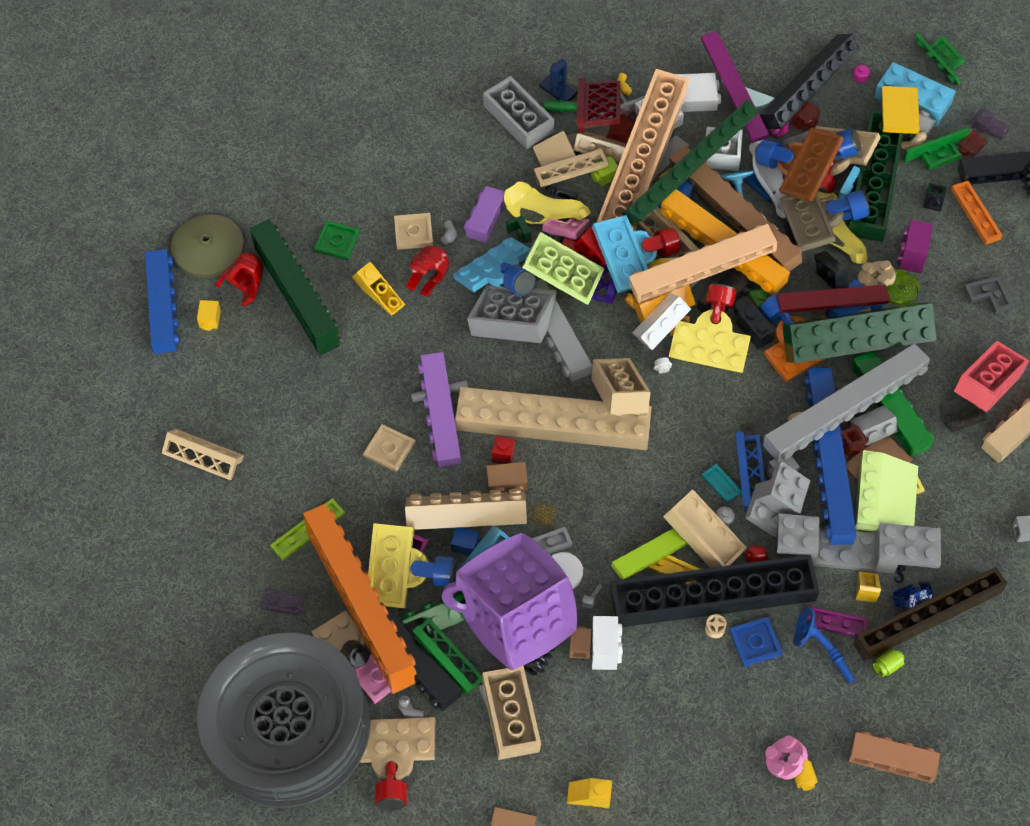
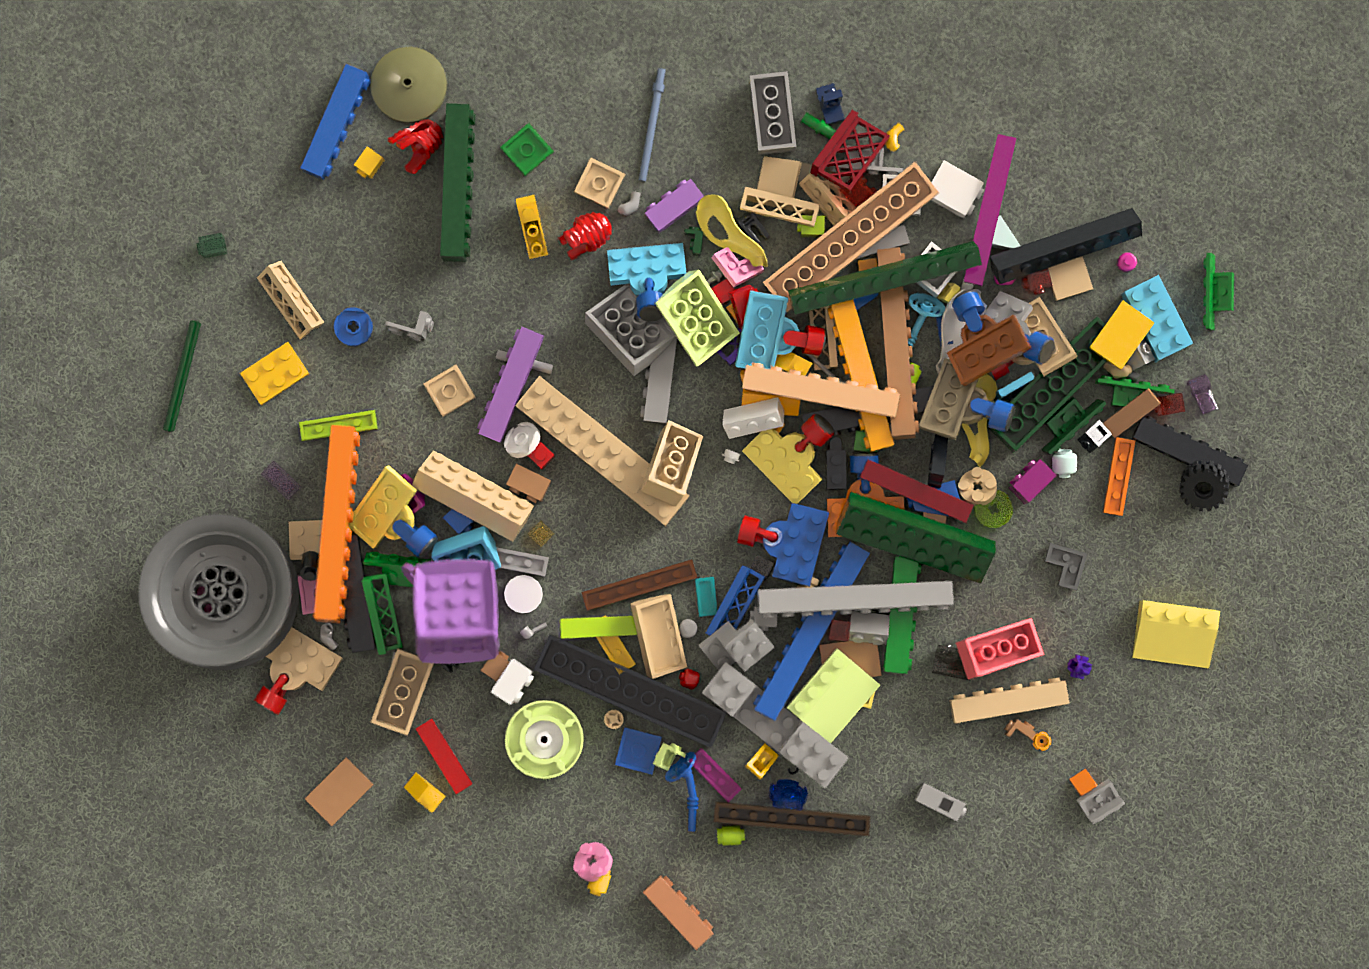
camera: 30 degrees right, 25 degrees up
(106, 447) = (212, 245): none -> clear green brick
(138, 568) = (181, 377): none -> dark green axle
(223, 519) = (274, 373): none -> yellow plate
(274, 434) = (345, 319): none -> blue plate
(325, 414) = (422, 328): none -> light grey bracket
(416, 147) = (658, 88): none -> sand blue bar
(479, 446) = (522, 440): none -> white tile
(585, 751) = (444, 756): none -> red tile
(658, 505) = (639, 585): none -> reddish brown plate
(667, 677) = (525, 739): none -> yellowish green piece
(746, 159) = (948, 292): none -> light yellow tile
(762, 395) = (791, 542): none -> blue plate
(783, 628) = (666, 755): none -> yellowish green bracket
(830, 103) = (1070, 278): none -> tan tile
(907, 193) = (1068, 420): none -> dark green bracket
(931, 217) = (1064, 463): none -> light aqua head
(950, 161) = (1131, 412): none -> medium nougat tile

